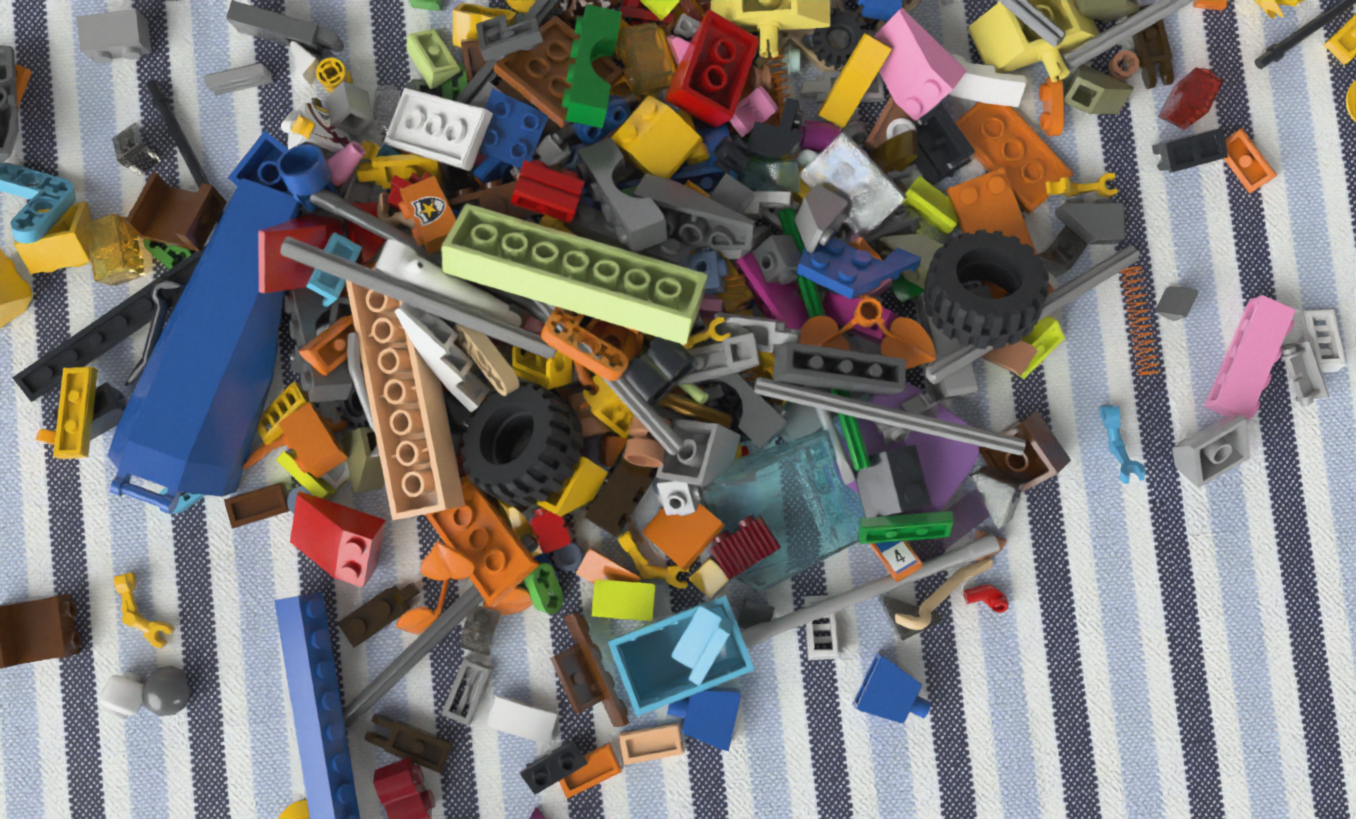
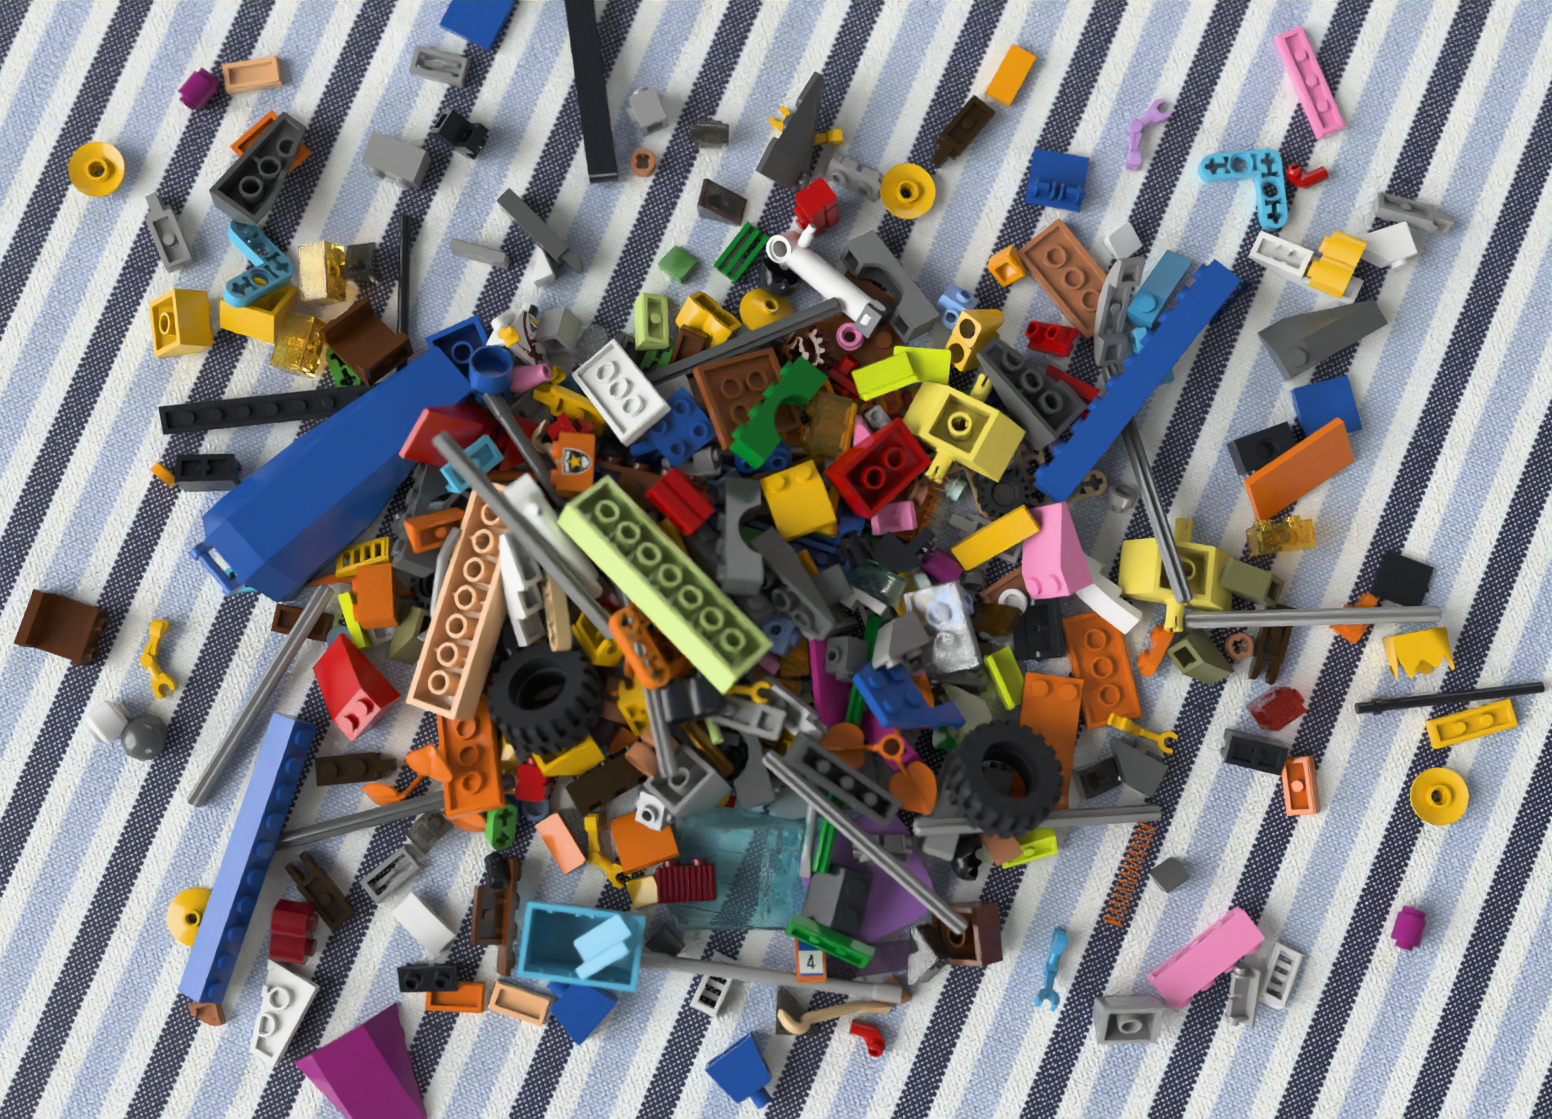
camera: 30 degrees right, 0 degrees up
(75, 413) = (195, 466): yellow tile -> none
(99, 173) = (321, 273): none -> clear yellow brick
(156, 324) = (300, 427): black piece -> none
(254, 593) = (260, 695): none -> light grey axle
(331, 81) = (563, 298): yellow wheel -> none
(500, 39) = (712, 349): dark grey plate -> none
(568, 639) = (496, 867): none -> black piece
(623, 600) = (561, 871): neon yellow panel -> none
(989, 392) = (964, 861): none -> black hair

